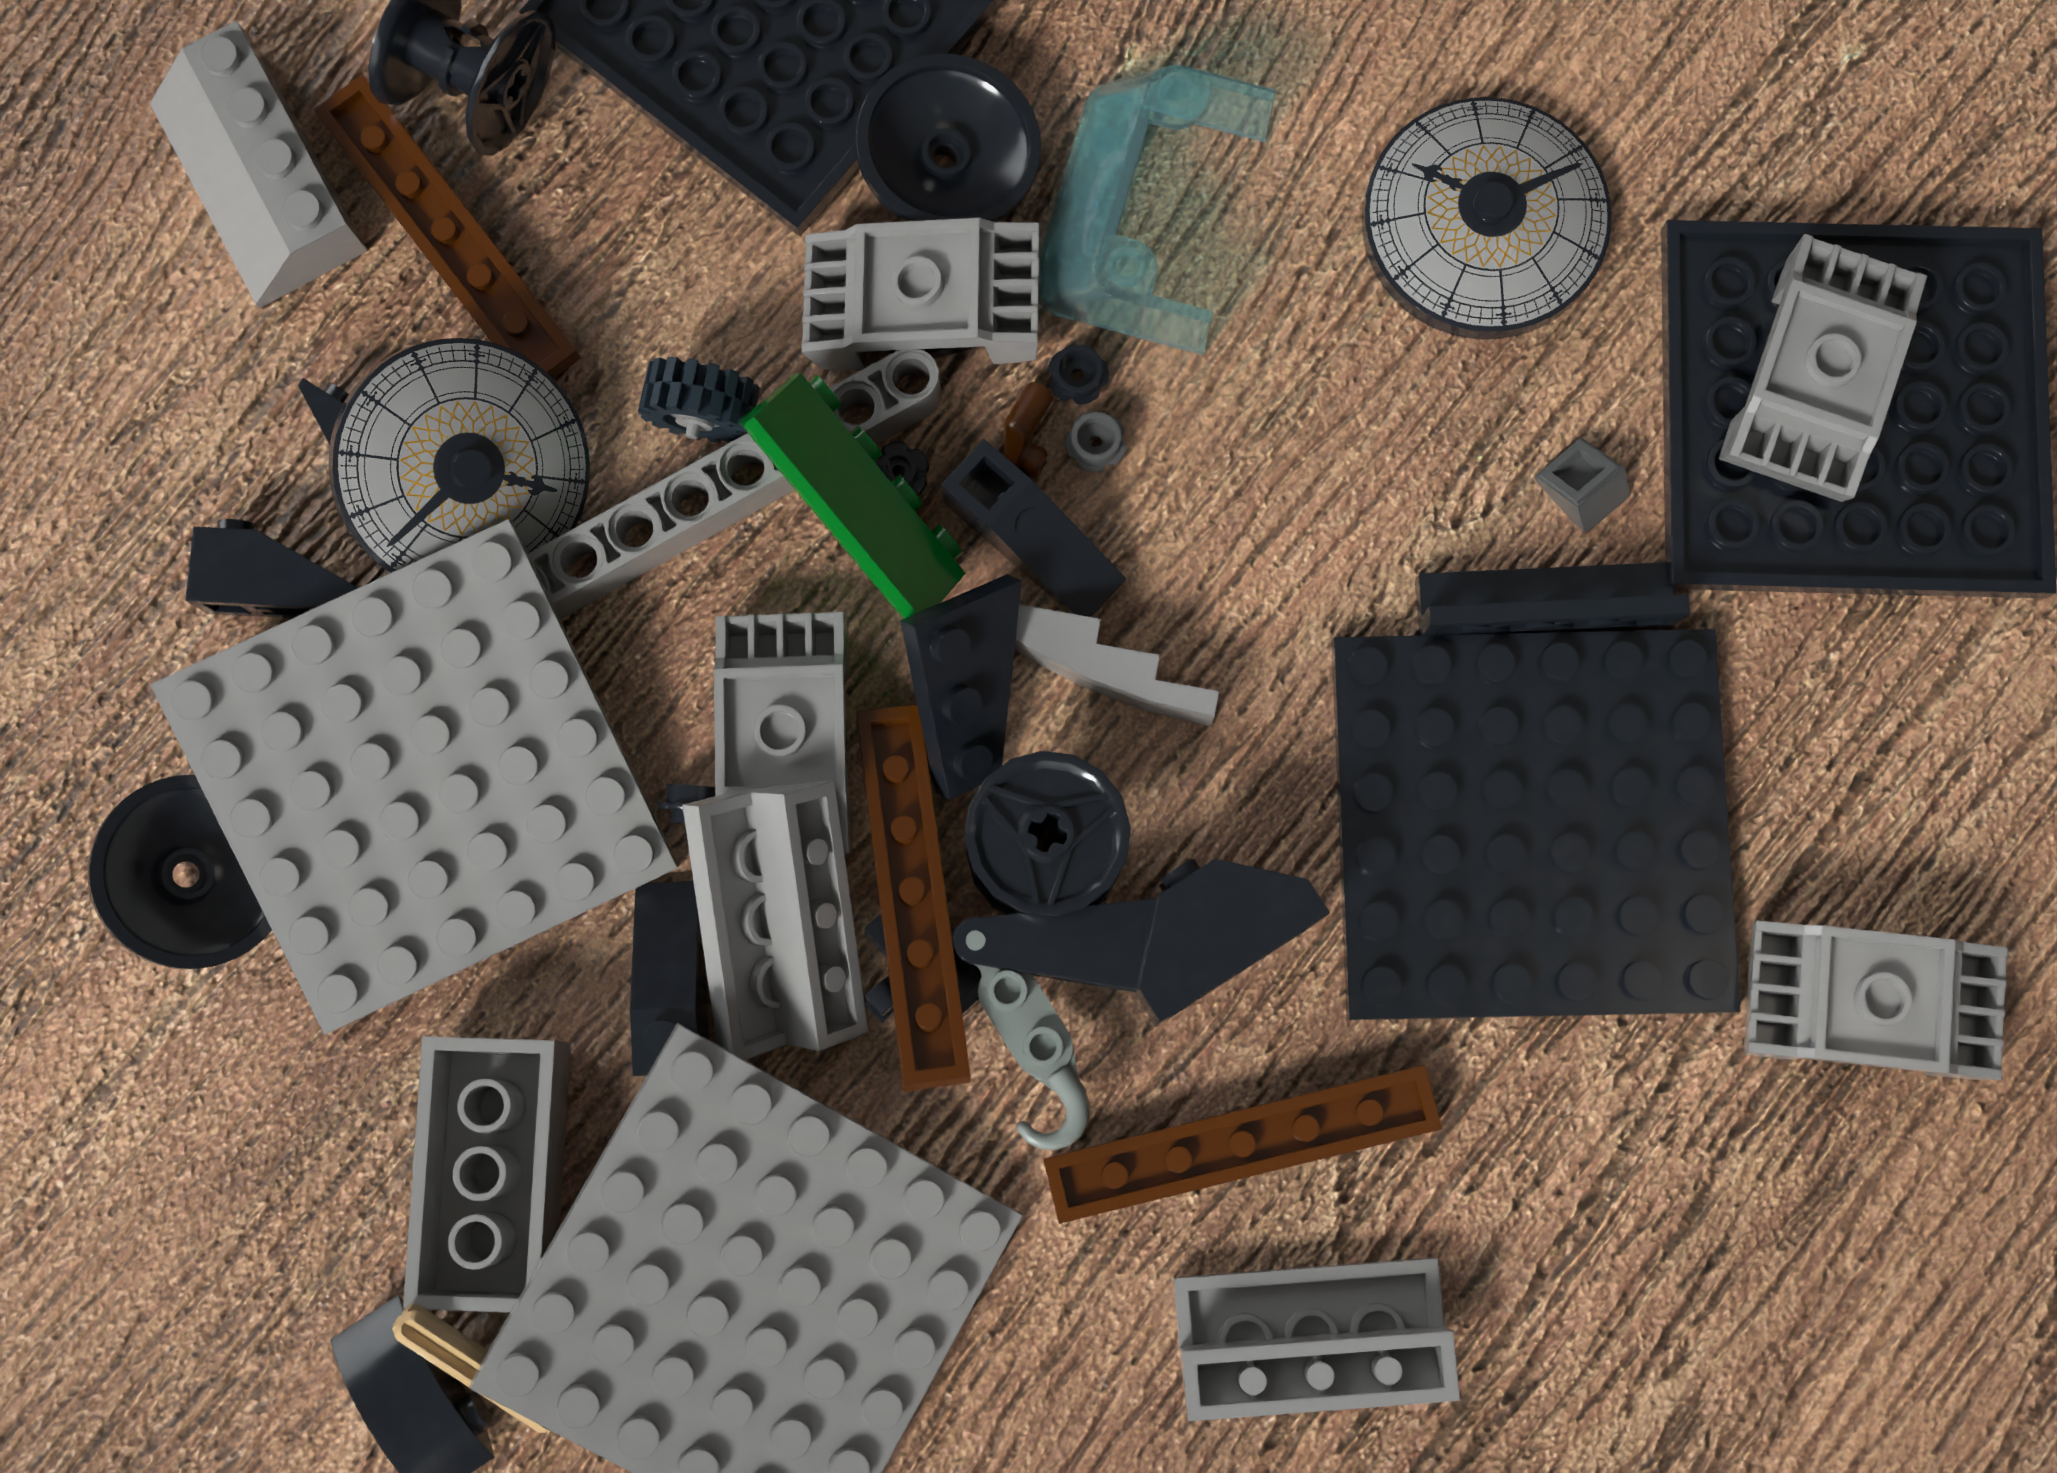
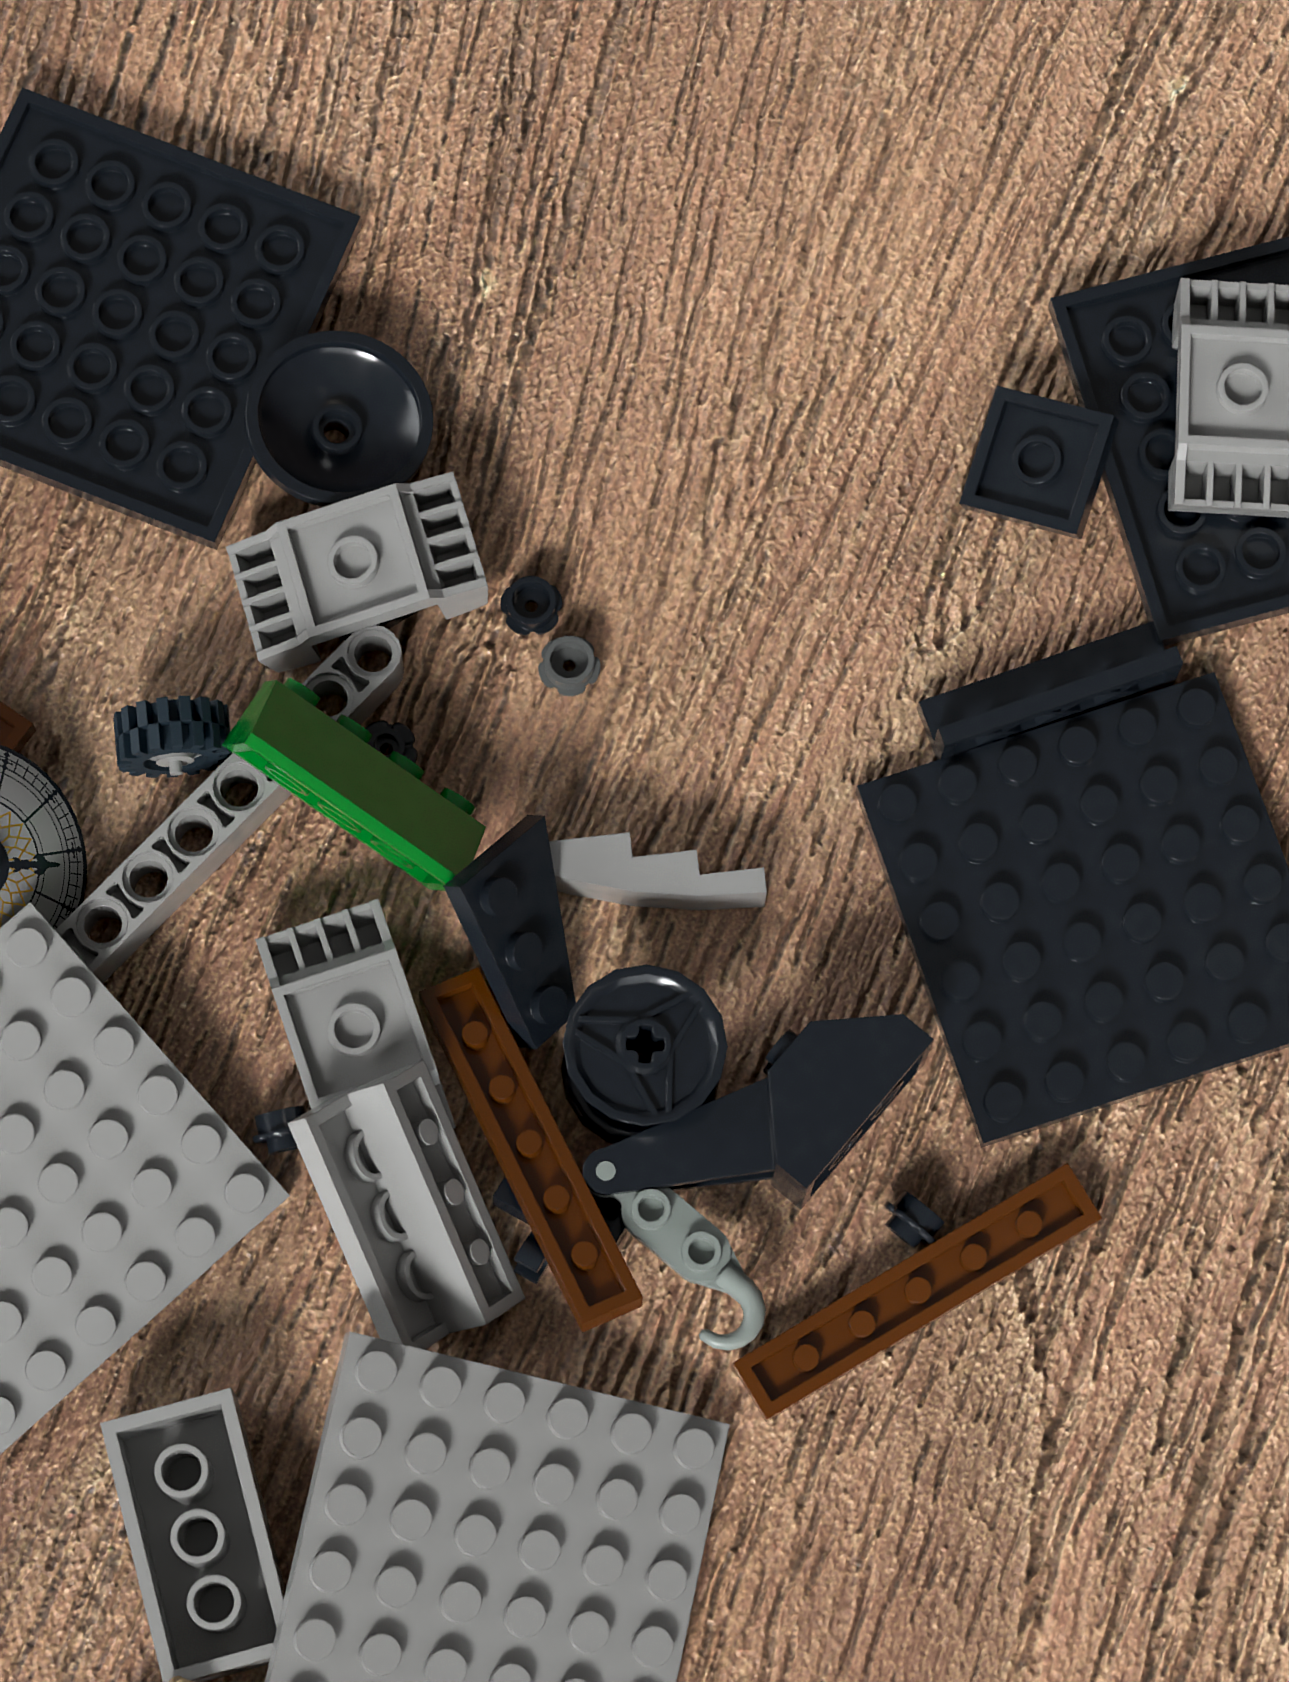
camera: 25 degrees left, 5 degrees down
(666, 970) = (309, 1292): black slope -> none
(1020, 428) = (492, 675): reddish brown arm -> none
(1030, 530) = (533, 769): black slope -> none
(1083, 263) = (507, 496): clear light blue windscreen -> none
(1258, 1073) = (912, 1220): none -> black plate
(1314, 1339) = (1041, 1451): light grey slope -> none
(1486, 218) = (878, 343): light grey dish -> none
(1585, 484) = (1050, 570): dark grey slope -> none
(1607, 375) = (1039, 462): none -> black plate

